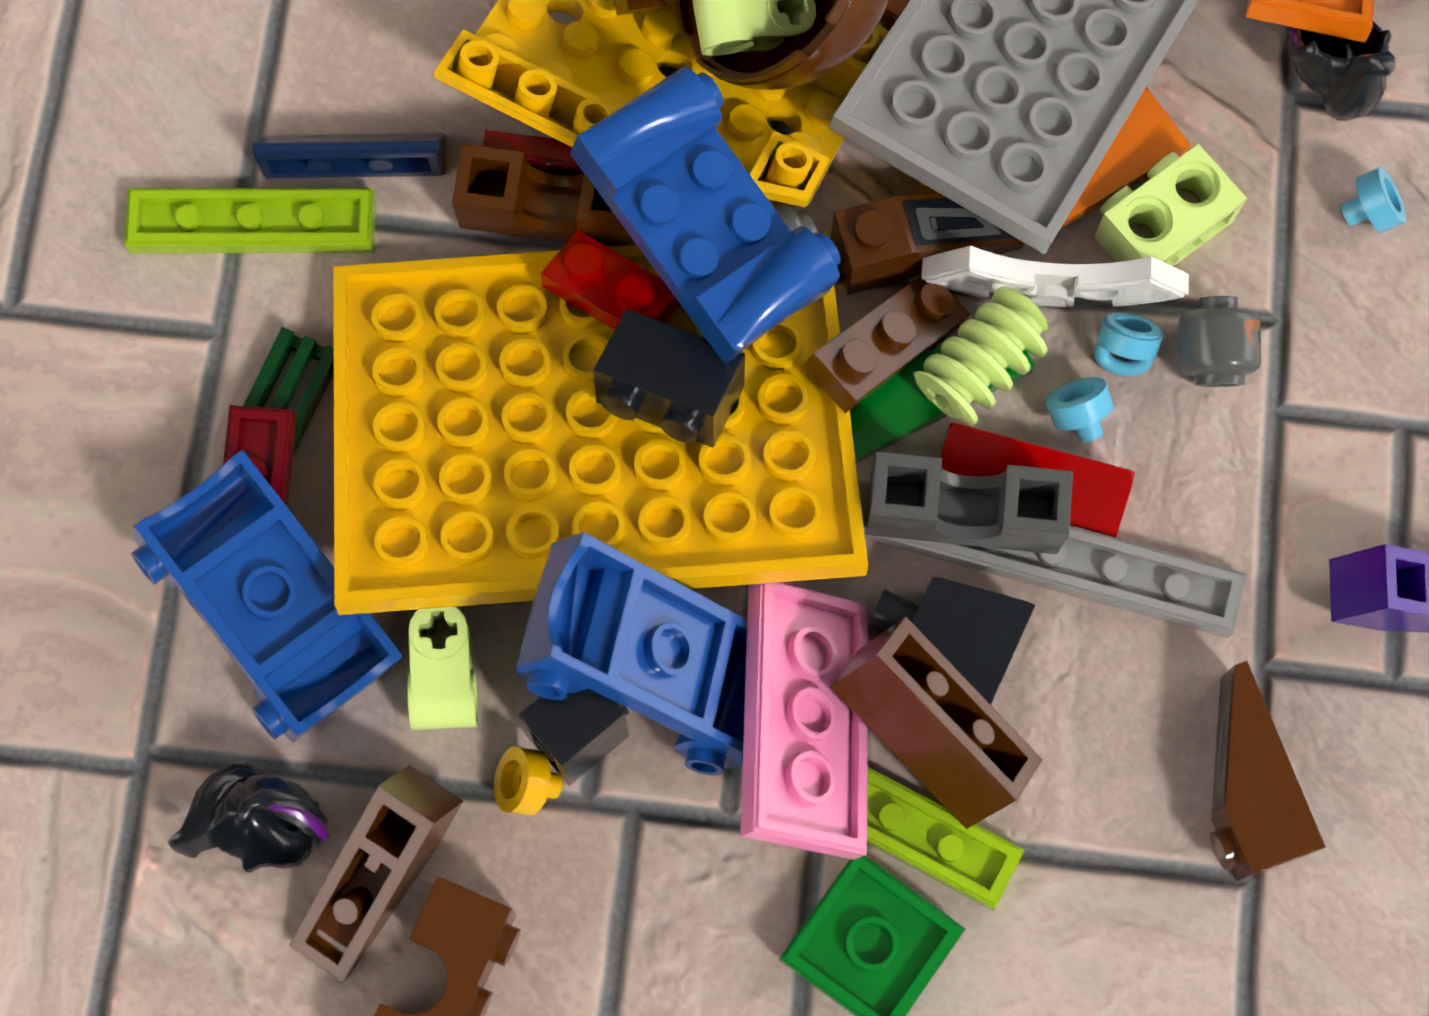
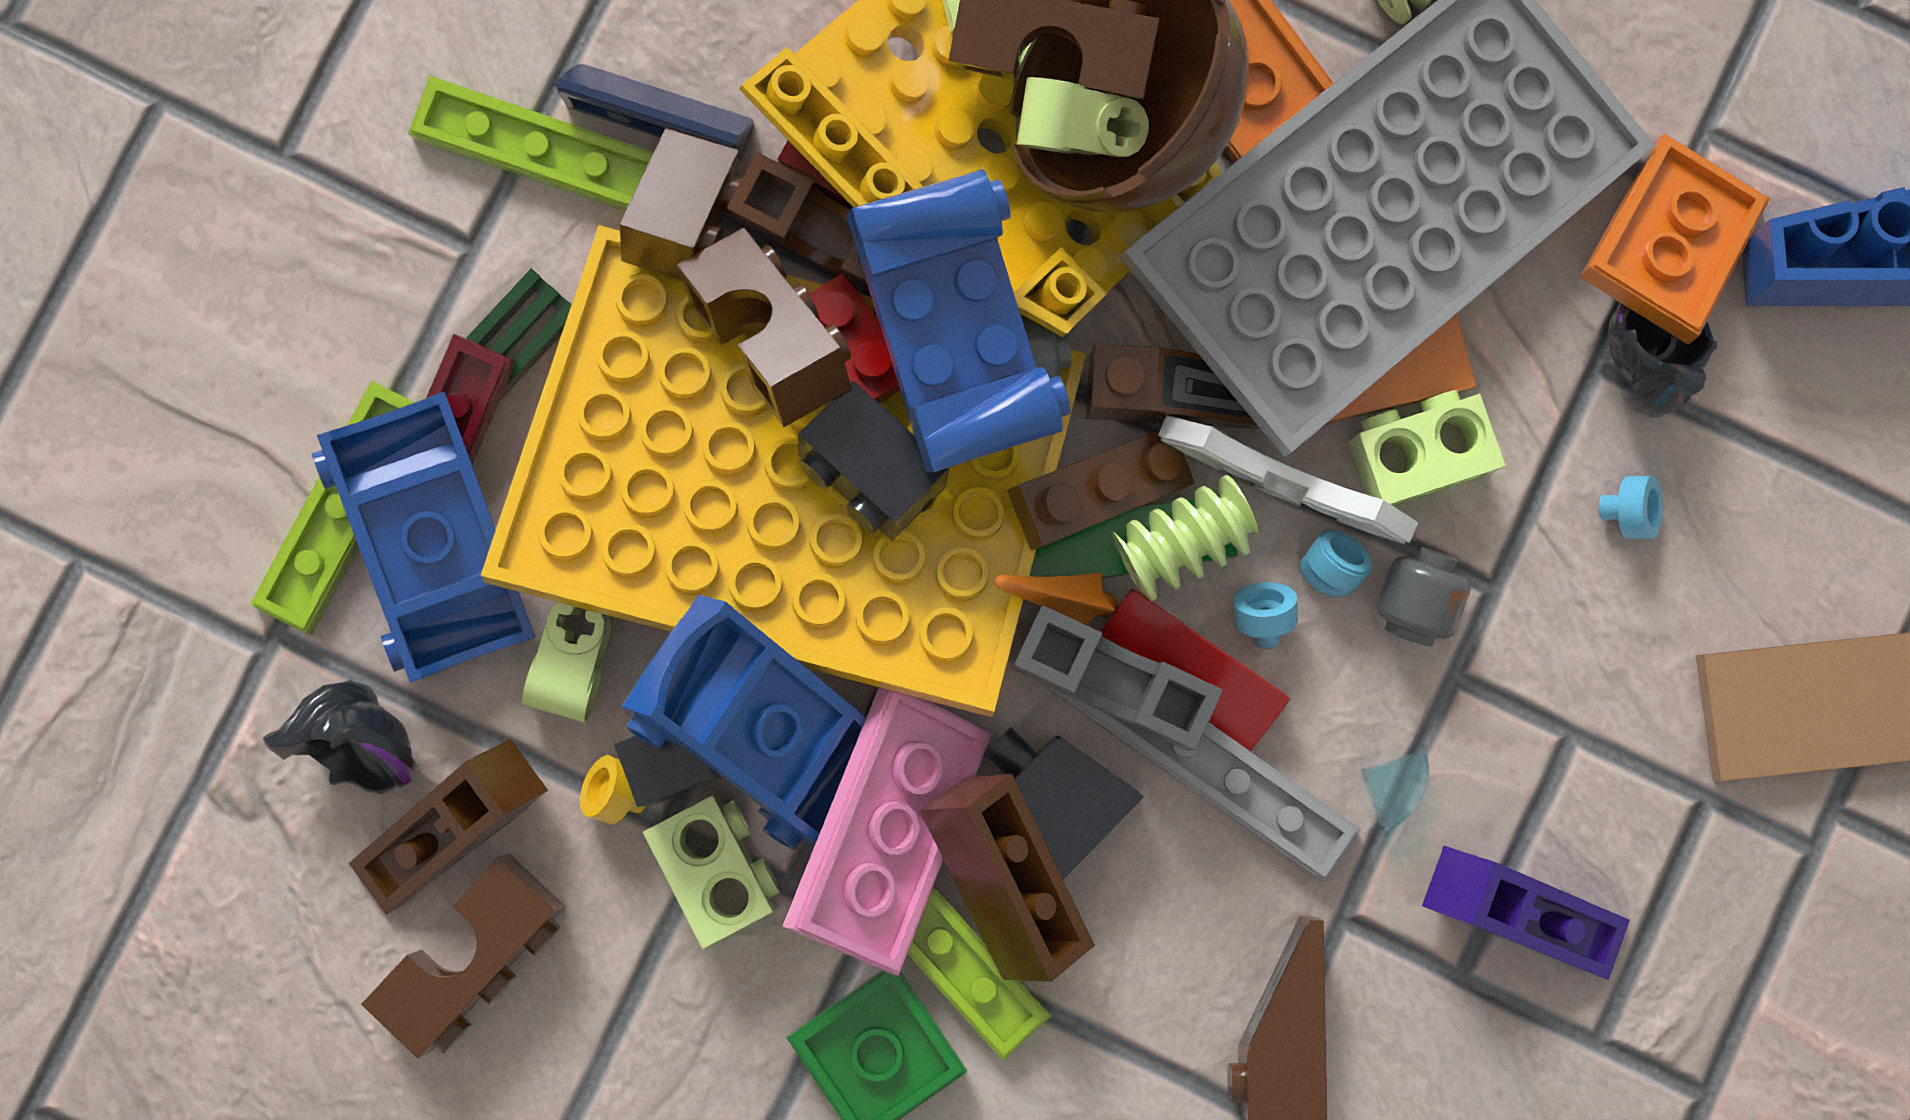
camera: 15 degrees right, 10 degrees up
(159, 652) = (318, 543): none -> lime tile
(406, 221) = (678, 202): none -> brick
(558, 298) = (745, 289): none -> arch
(636, 832) = (696, 877): none -> yellowish green brick
(896, 439) = (1073, 596): none -> orange piece
(1263, 525) = (1397, 787): none -> clear light blue tile

